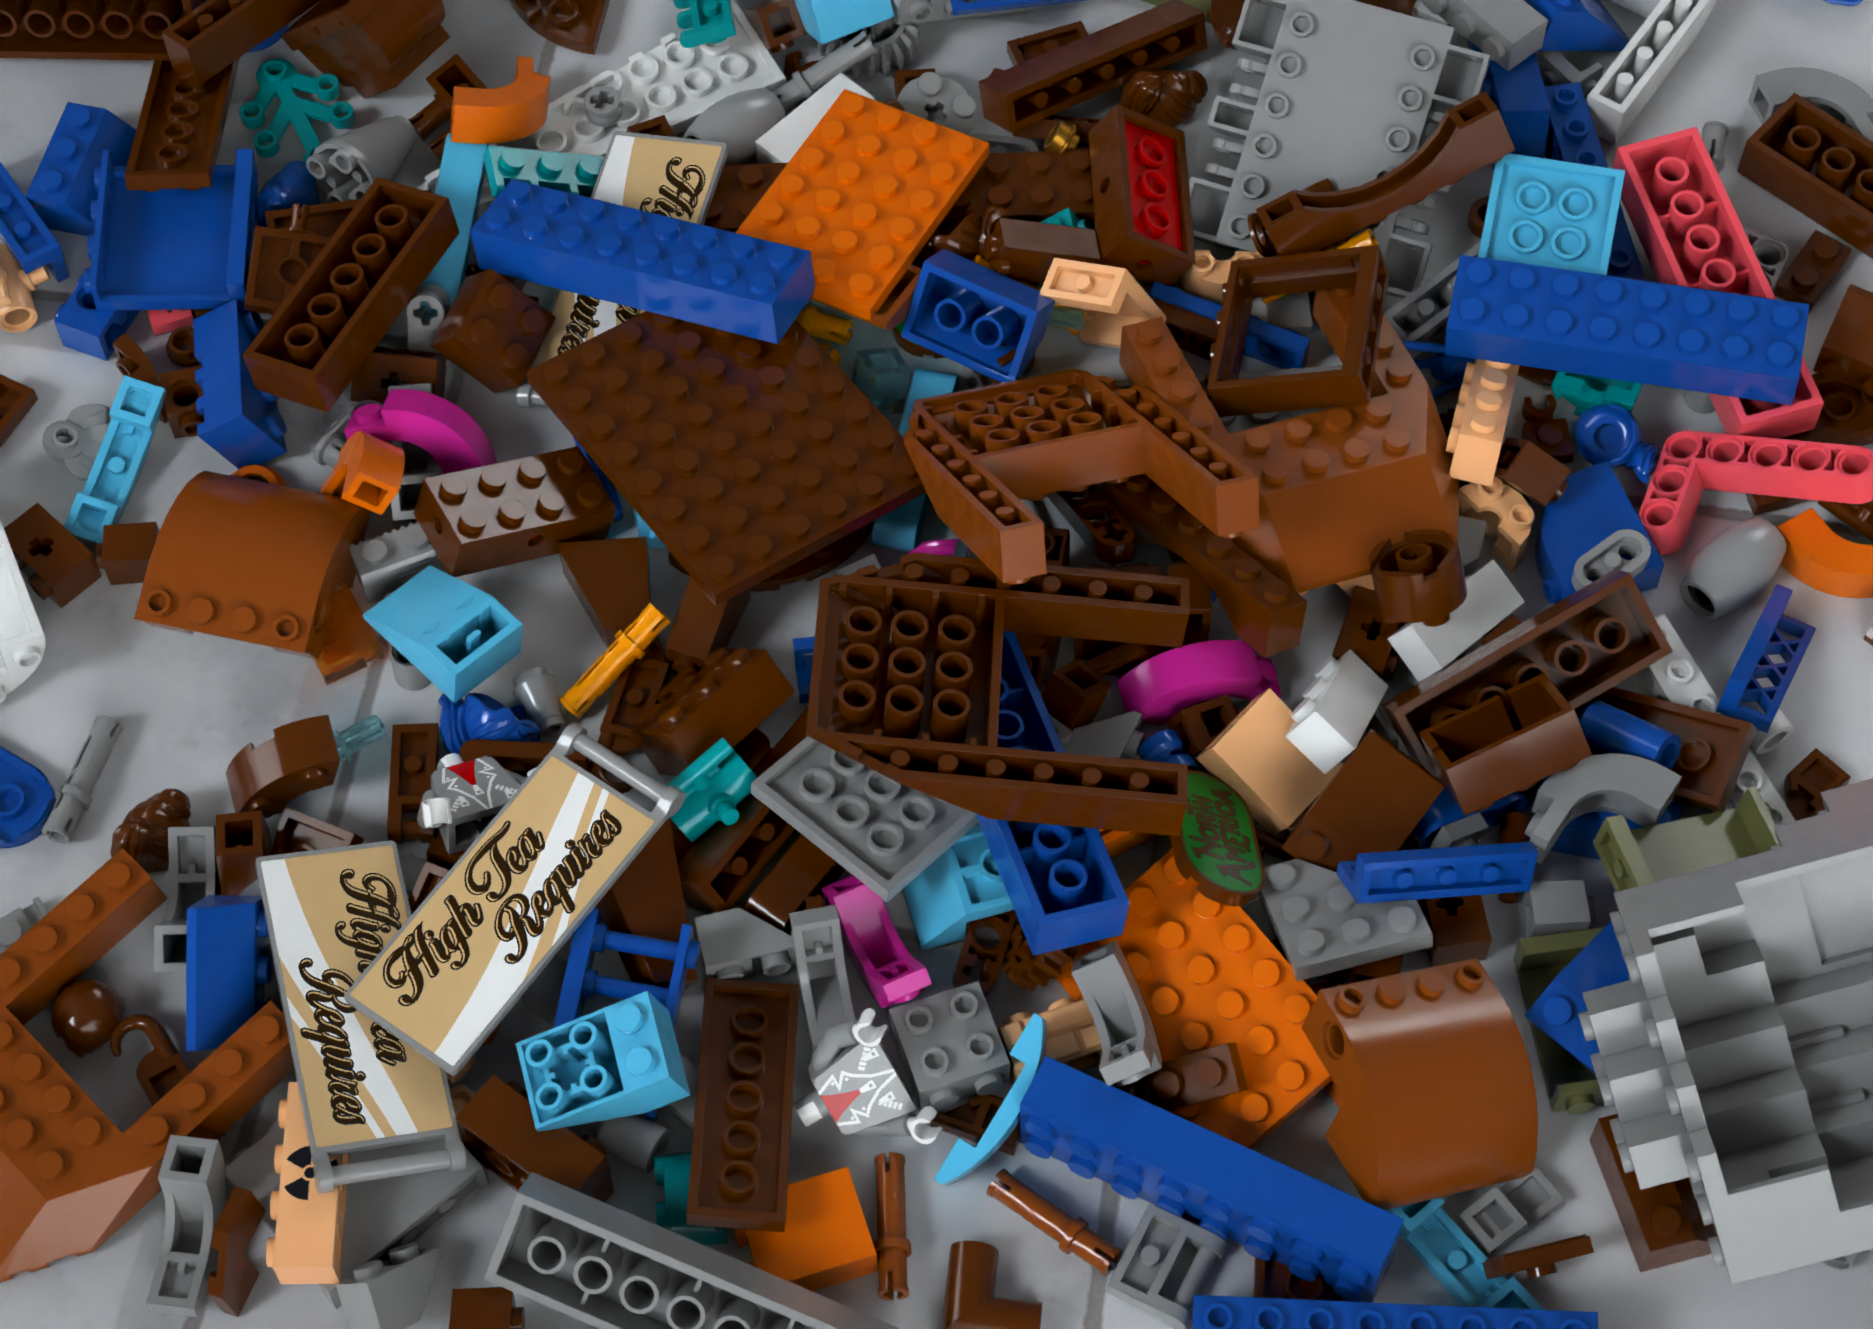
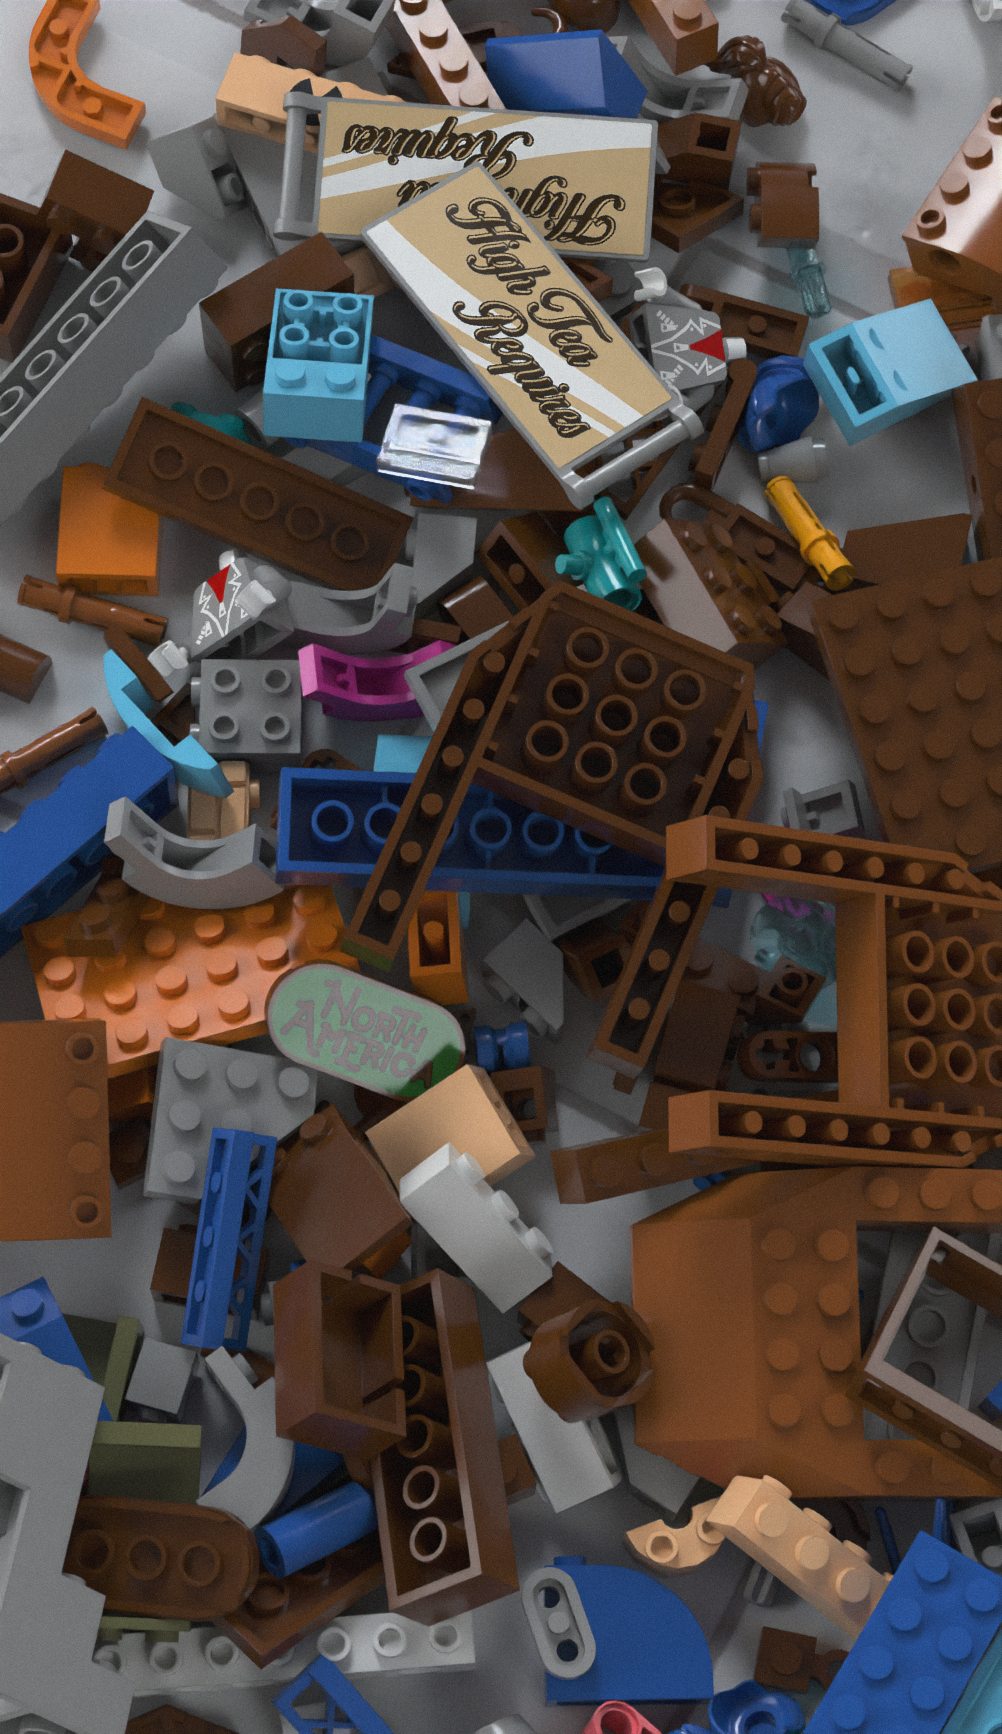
camera: 105 degrees right, 10 degrees up
(660, 936) = (434, 446): none -> clear plate
(922, 1179) = (135, 660): none -> reddish brown tile
(1195, 674) = (579, 1104): dark pink arch -> none
(1531, 471) = (720, 1584): reddish brown brick -> none
(1709, 807) = (162, 1557): none -> reddish brown tile

